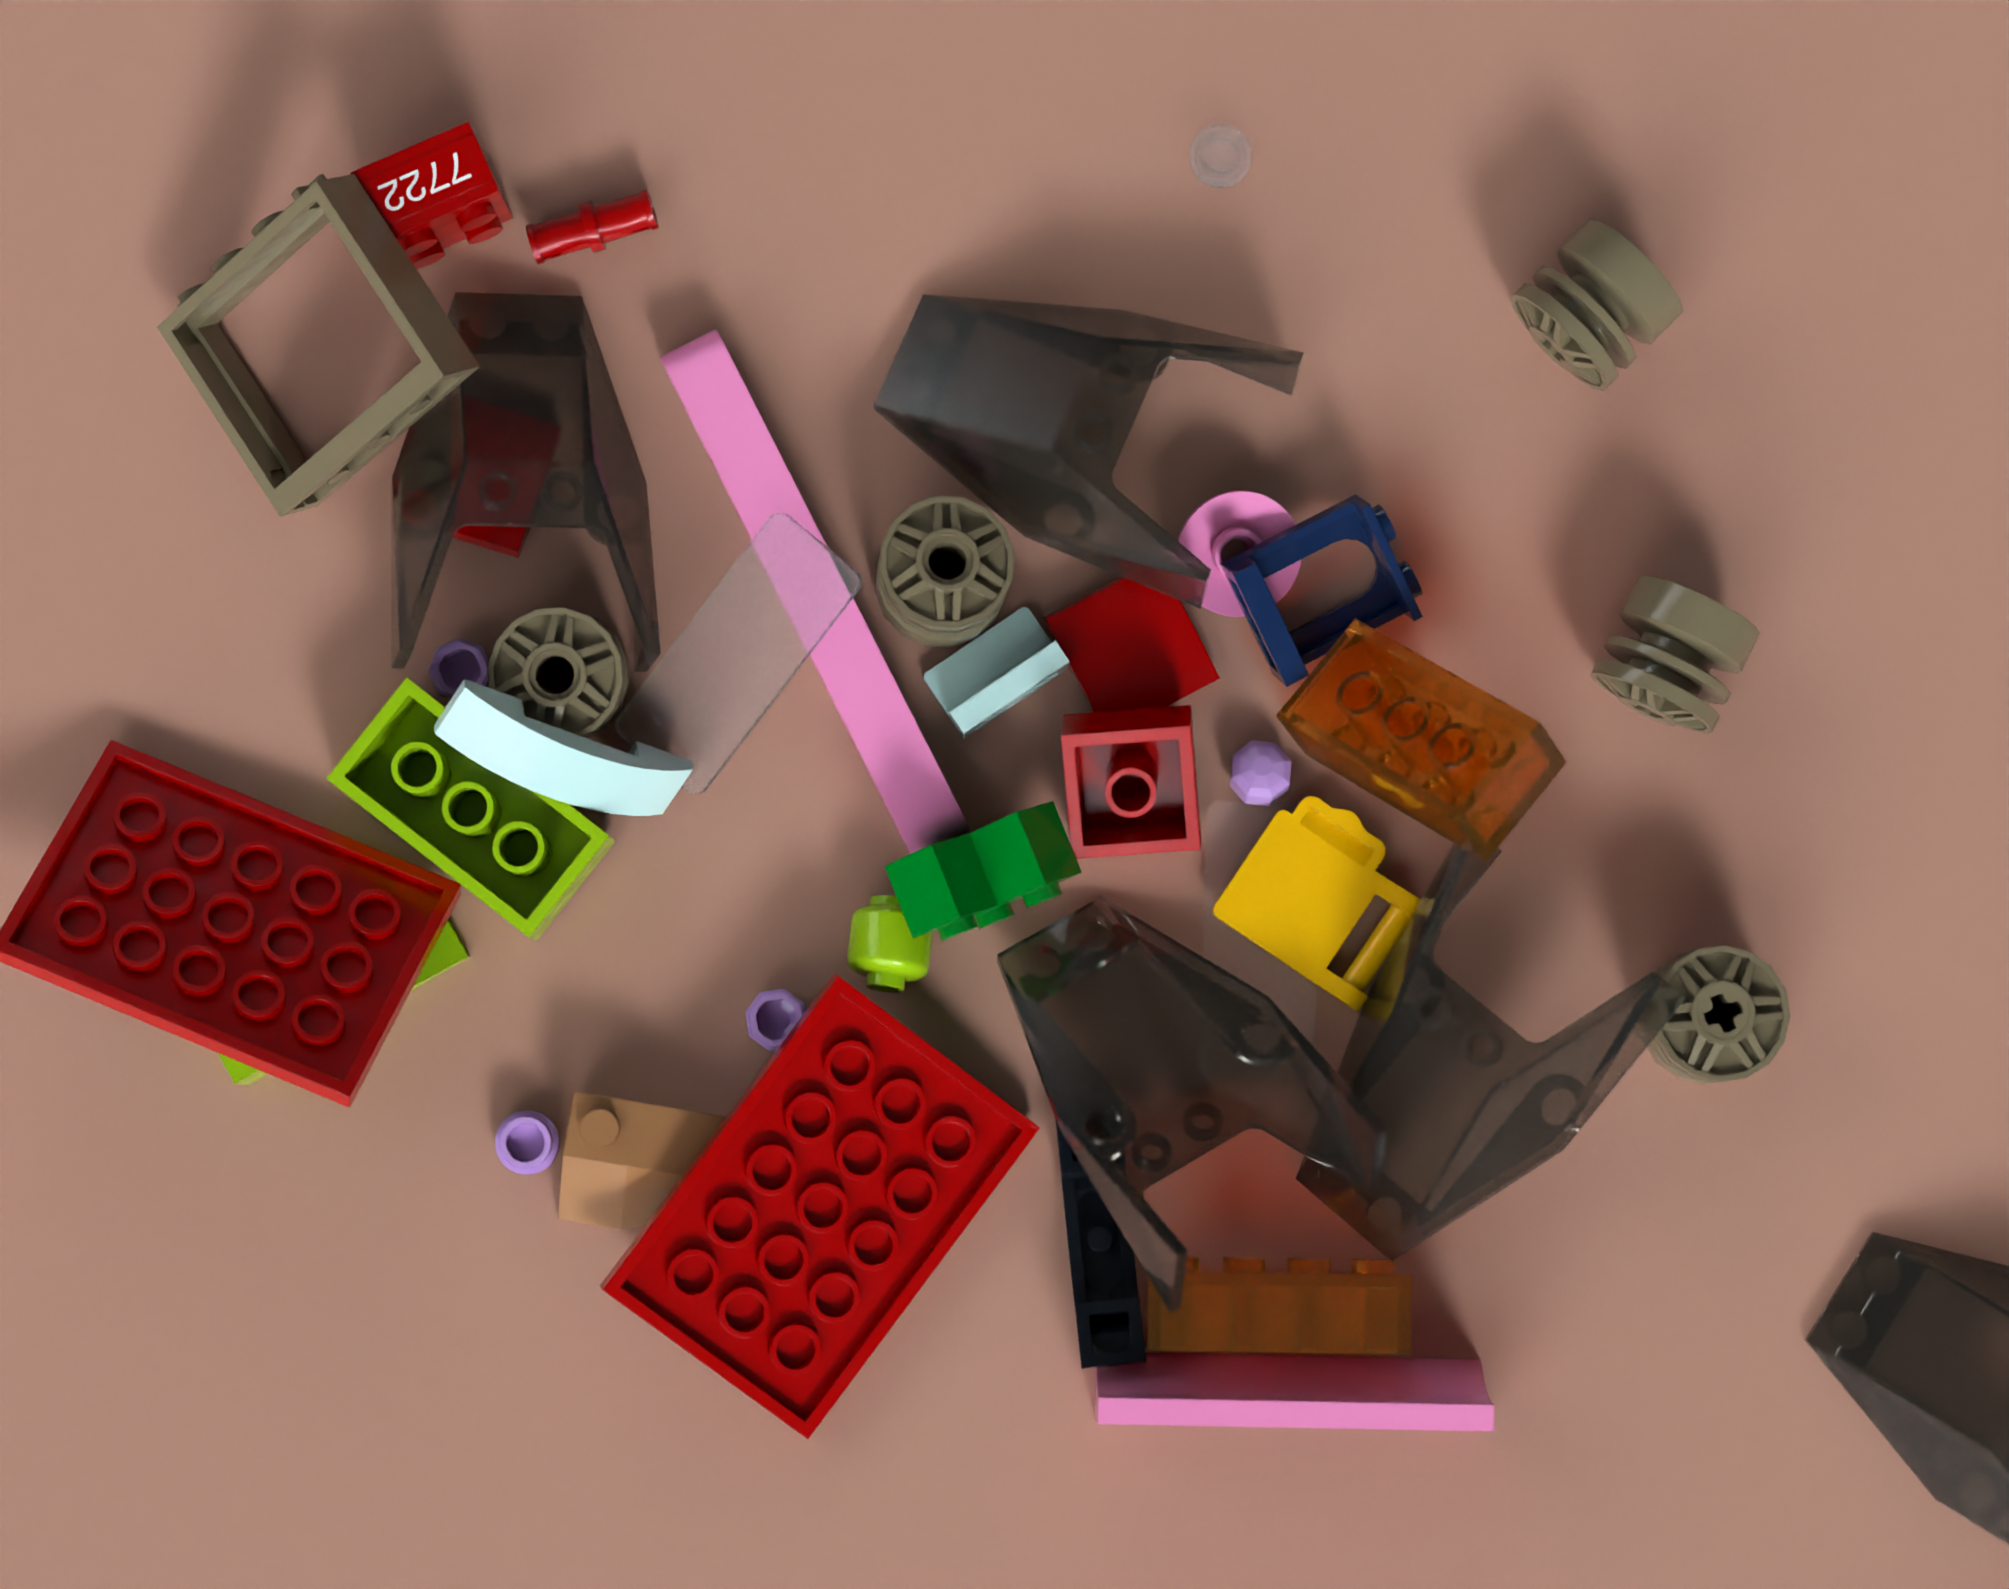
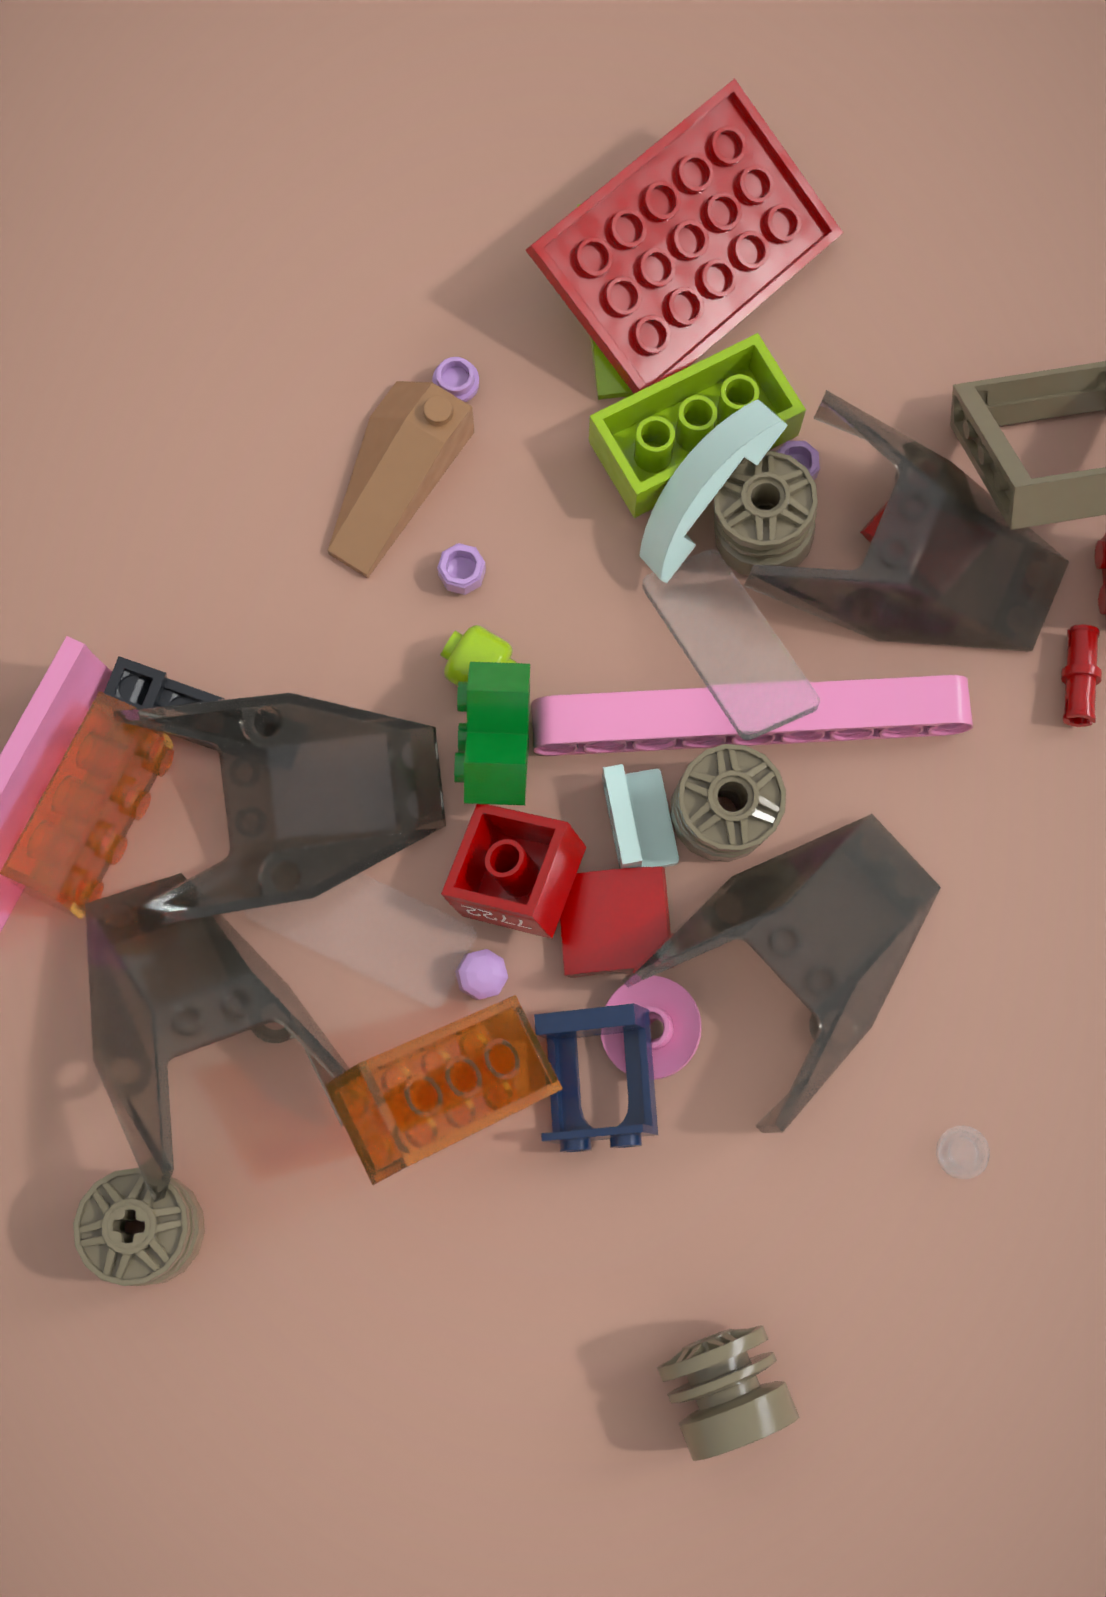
camera: 115 degrees right, 10 degrees down
(820, 1206) = (319, 538): red plate -> none
(1307, 892) = (379, 970): yellow piece -> none
(1670, 664) = (424, 1324): dark tan wheel -> none

